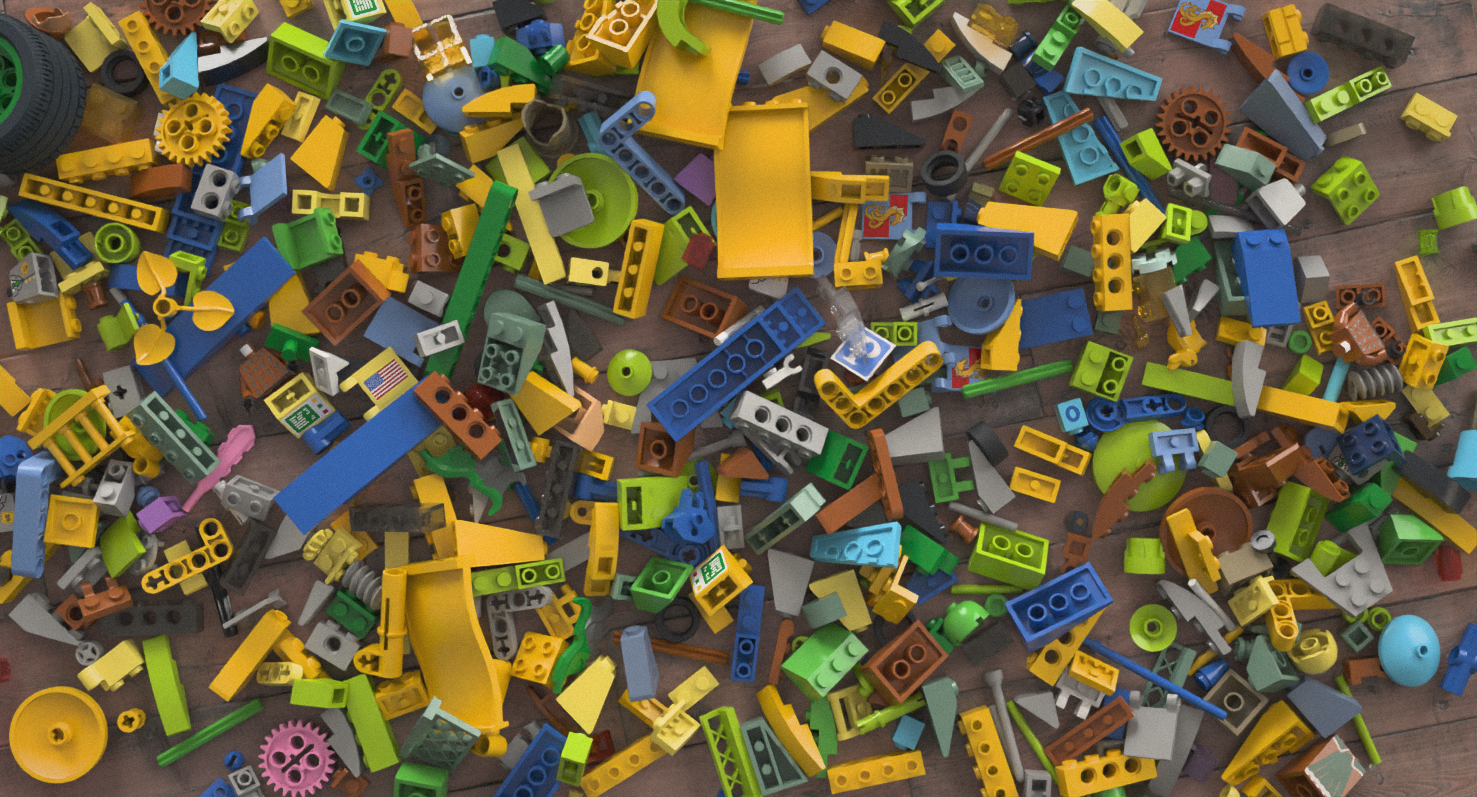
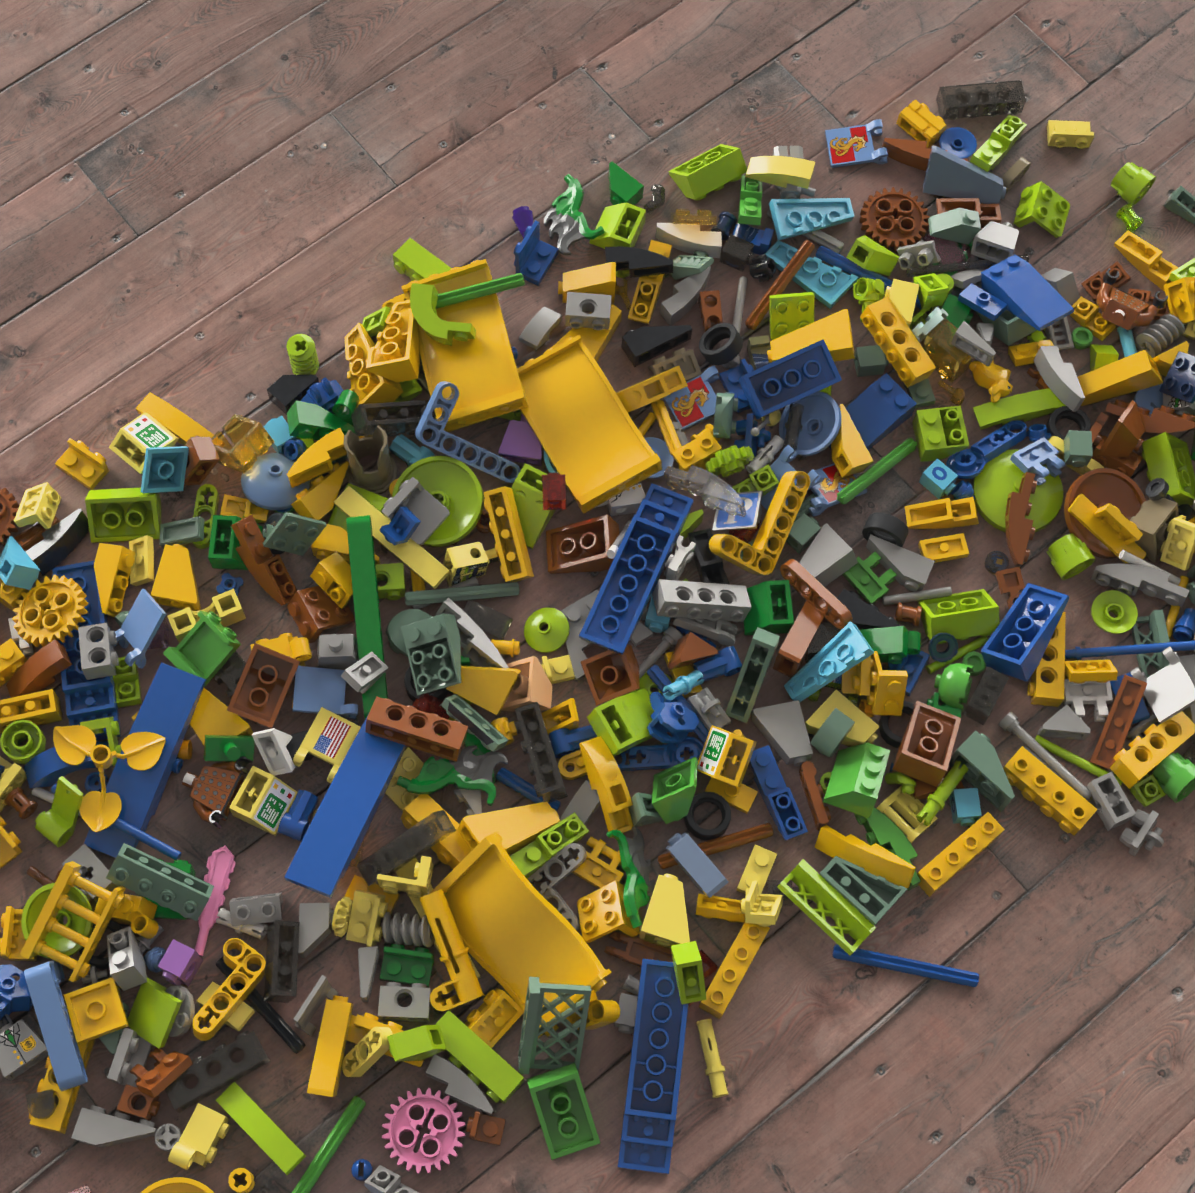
camera: 35 degrees left, 20 degrees down
(385, 554) = (415, 888): none -> light yellow bracket
(539, 214) = (400, 527): none -> blue bracket
(717, 495) = (683, 685): none -> medium azure pin
(882, 300) = (730, 460): none -> lime gear
(962, 296) = (793, 425): none -> clear smoke pin
(974, 586) = (946, 655): none -> piece
(1220, 262) = (982, 302): none -> blue plate

